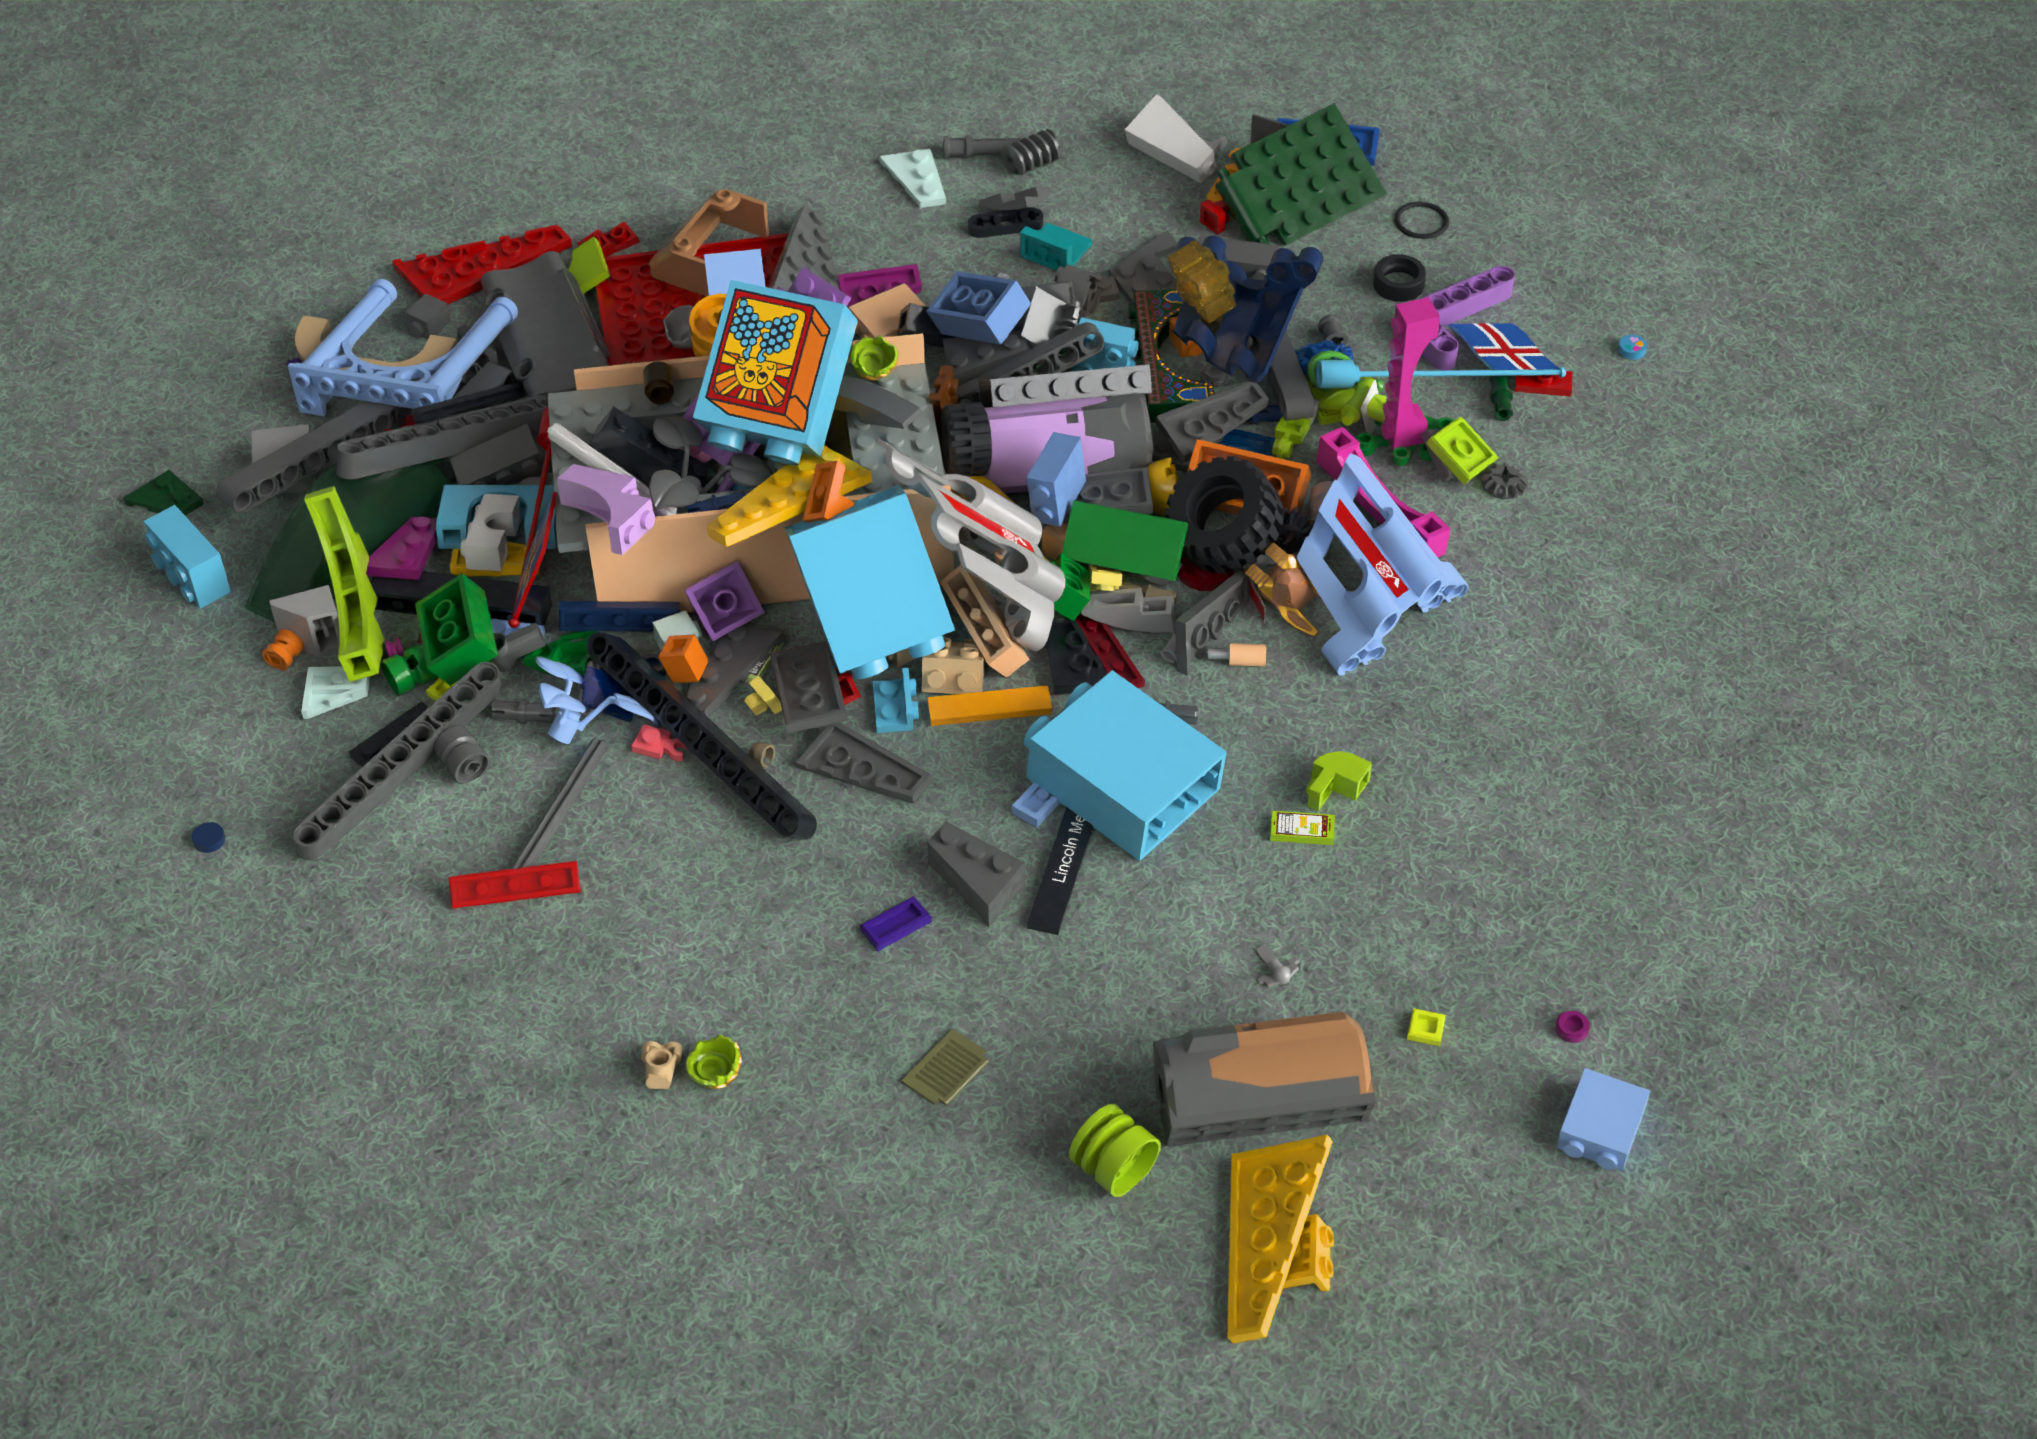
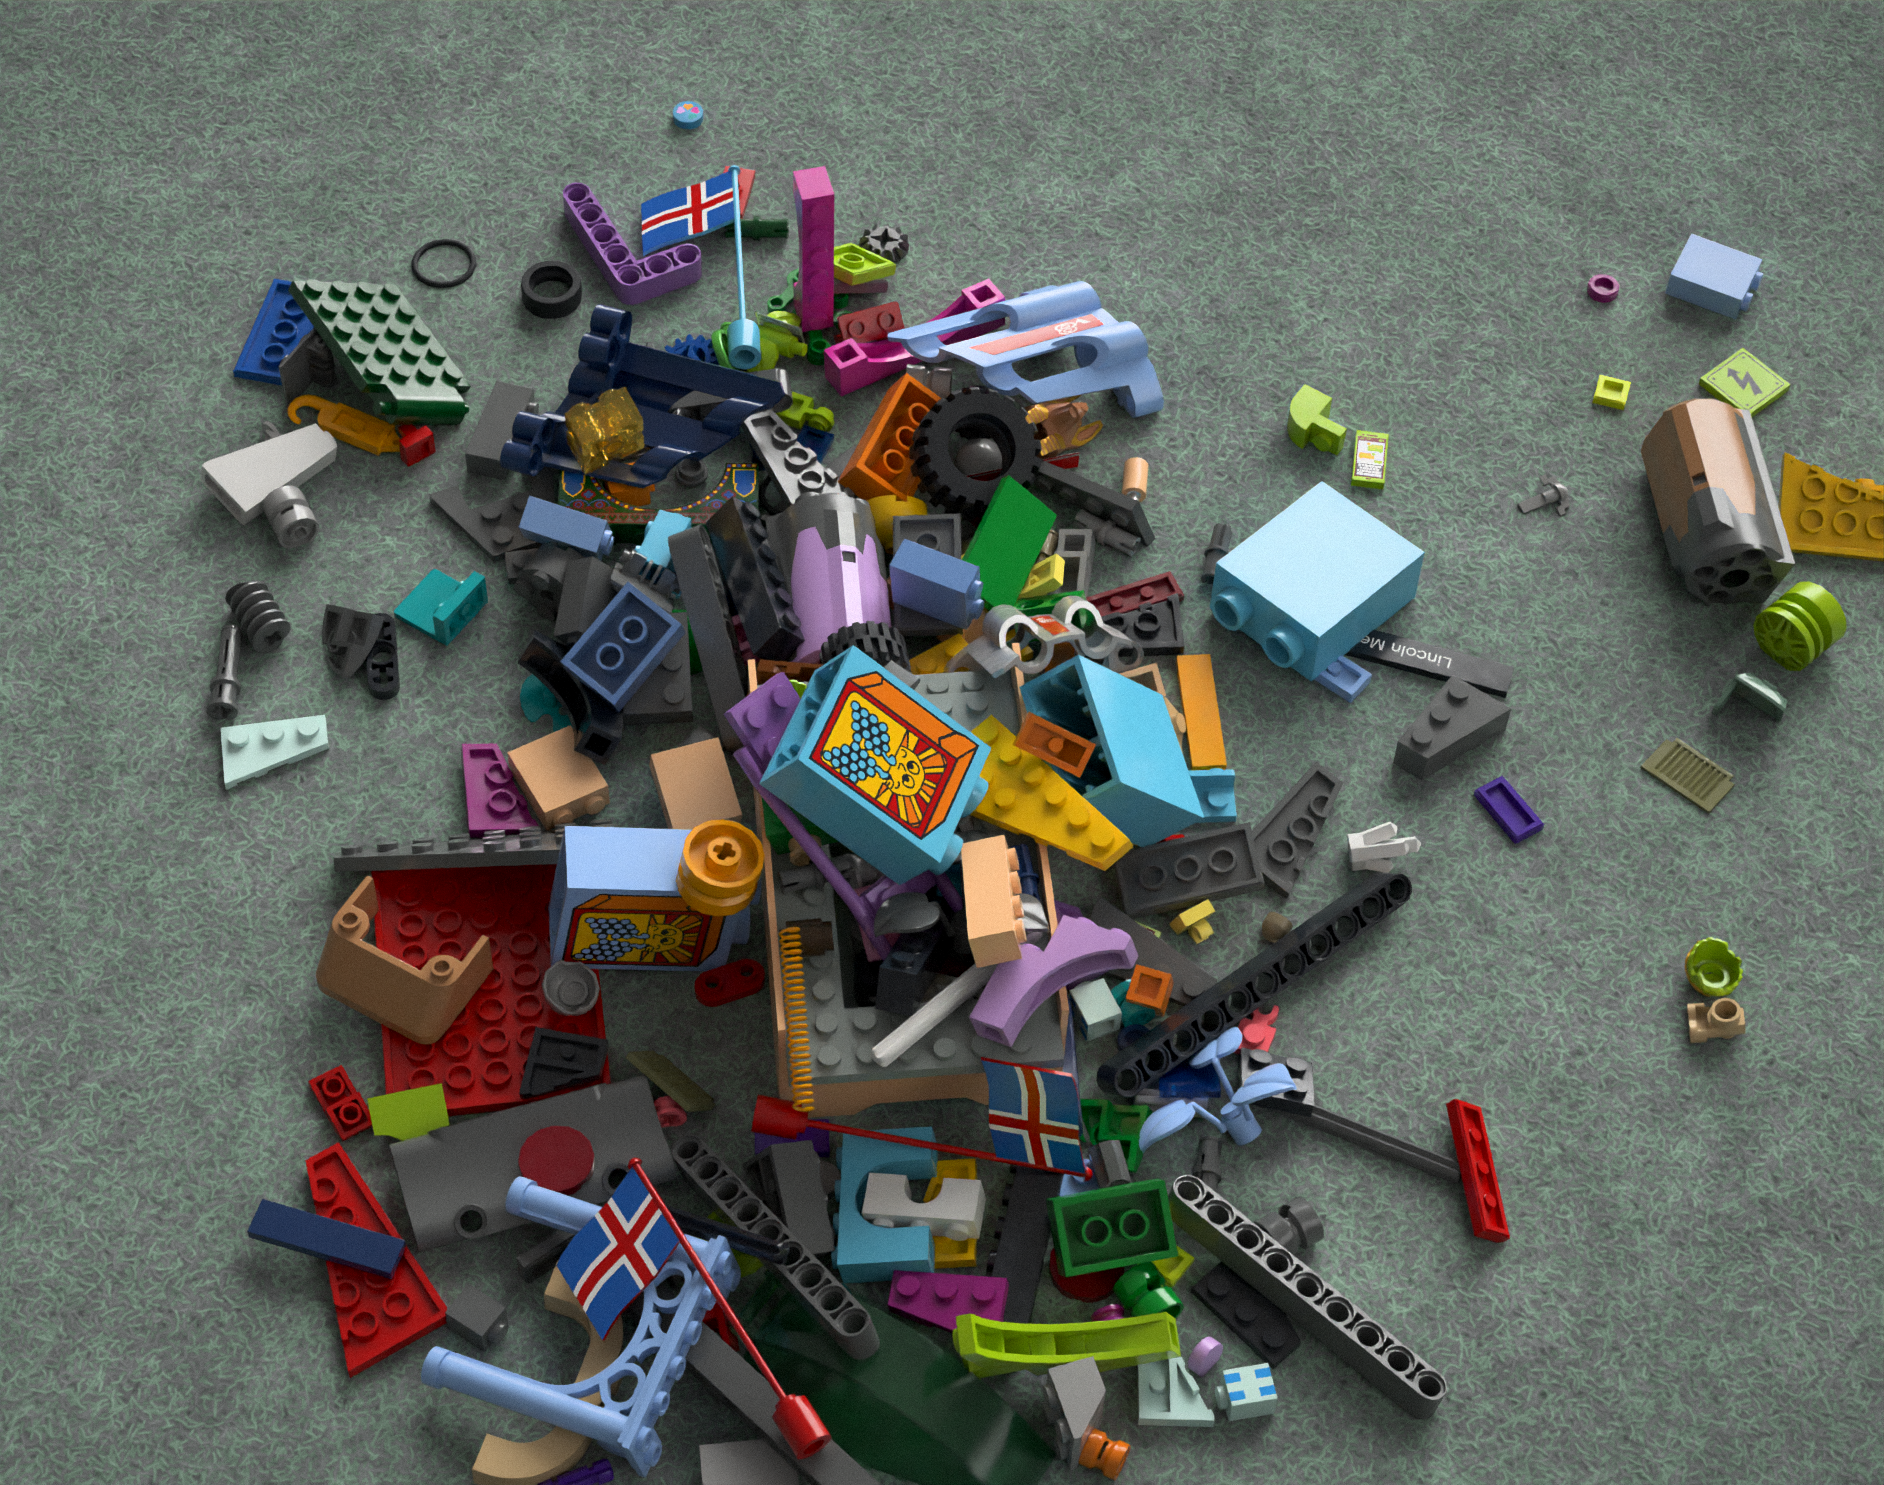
camera: 90 degrees left, 5 degrees up
(323, 732) = (1246, 1392): none -> light aqua brick
(359, 708) = (1205, 1356): none -> lavender tile
(430, 349) = (626, 1251): none -> flag
(490, 236) = (326, 1239): none -> dark blue tile
(536, 331) = (557, 1159): none -> dark red tile
(583, 381) = (798, 1018): none -> light orange piece
(600, 745) = (1294, 1101): none -> black plate
(627, 332) = (561, 1062): none -> black wing
(671, 462) = (992, 901): none -> light nougat brick
(840, 818) = (1374, 847): none -> white rock
(1027, 1113) = (1757, 692): none -> sand green piece
(1113, 282) = (570, 528): none -> light blue brick
(1130, 157) = (290, 516): none -> light grey wheel
(1386, 463) = (870, 323): none -> red bracket
(1459, 1145) = (1744, 382): none -> lime tile

